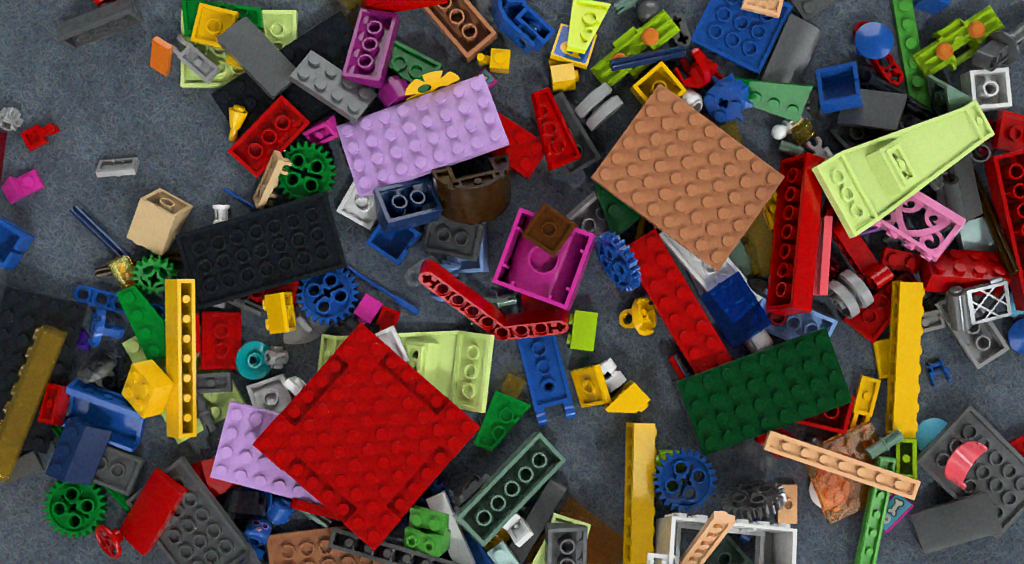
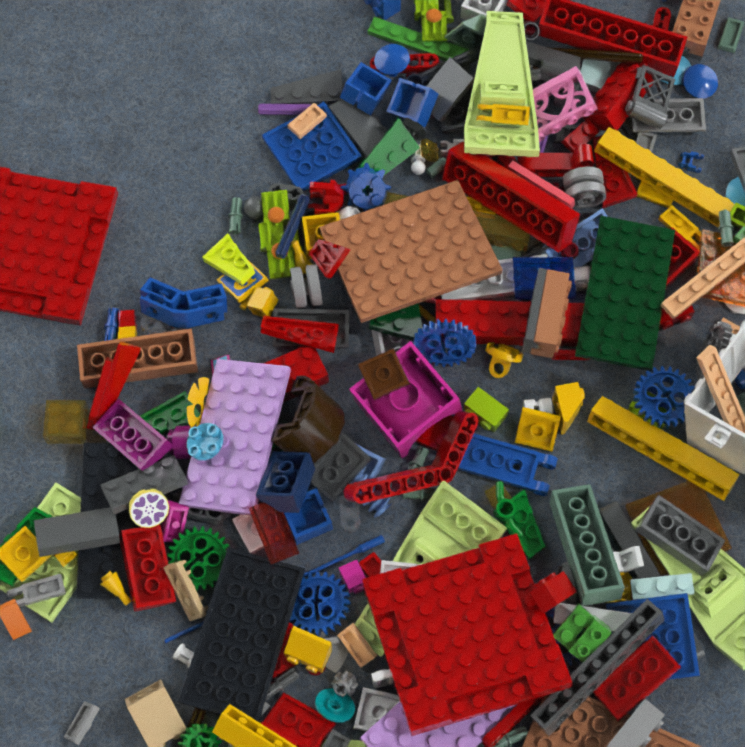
camera: 55 degrees left, 20 degrees down
(312, 105) = (148, 508): none -> tile
(313, 347) = (357, 645): none -> light nougat plate
(357, 223) = (273, 532): none -> clear red tile
(398, 113) = (204, 441): none -> medium azure dish
(444, 488) = (552, 591): none -> red brick
(493, 410) = (502, 502): none -> green piece
(498, 61) = (213, 345): yellow brick -> none
(623, 86) = (300, 257): none -> yellow cone
(634, 110) = (328, 256): none -> red wing
(697, 336) = (547, 313): none -> nougat piece
(827, 35) = (365, 88): none -> blue piece
(875, 182) = (505, 114): none -> yellow hinge

